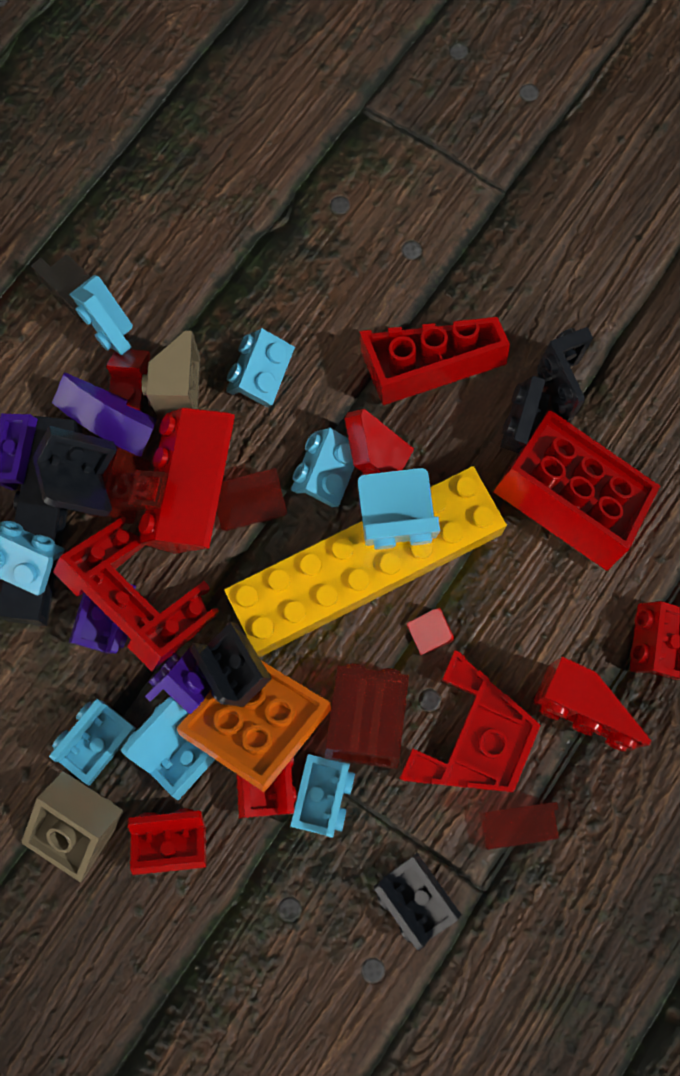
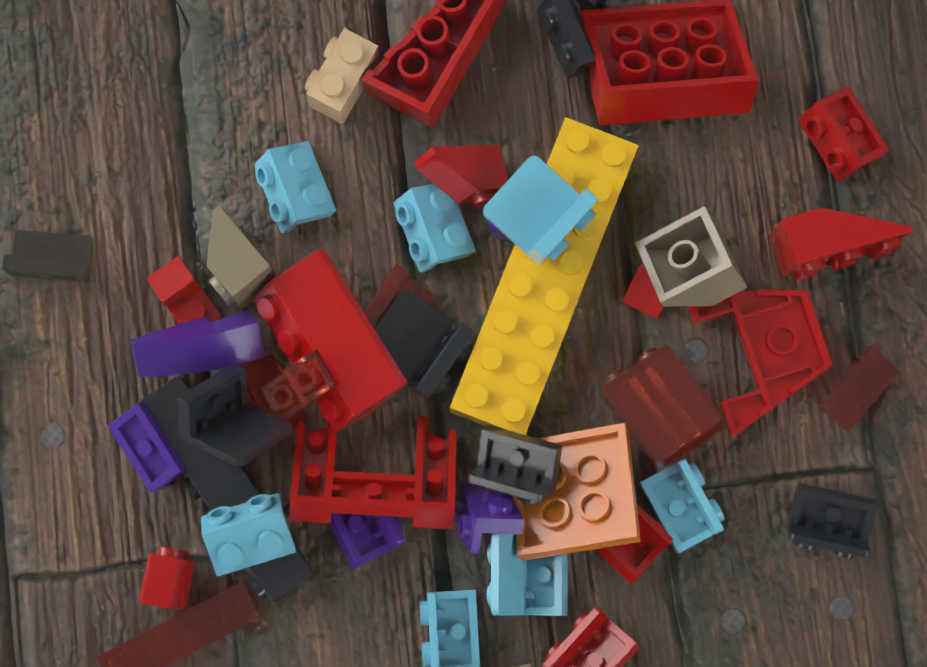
camera: 45 degrees left, 5 degrees up
(101, 310) = (113, 258): medium azure bracket -> none
(246, 532) = (423, 342): none -> black bracket
(341, 322) = (338, 82): none -> tan brick
(474, 635) = (691, 262): none -> dark tan slope

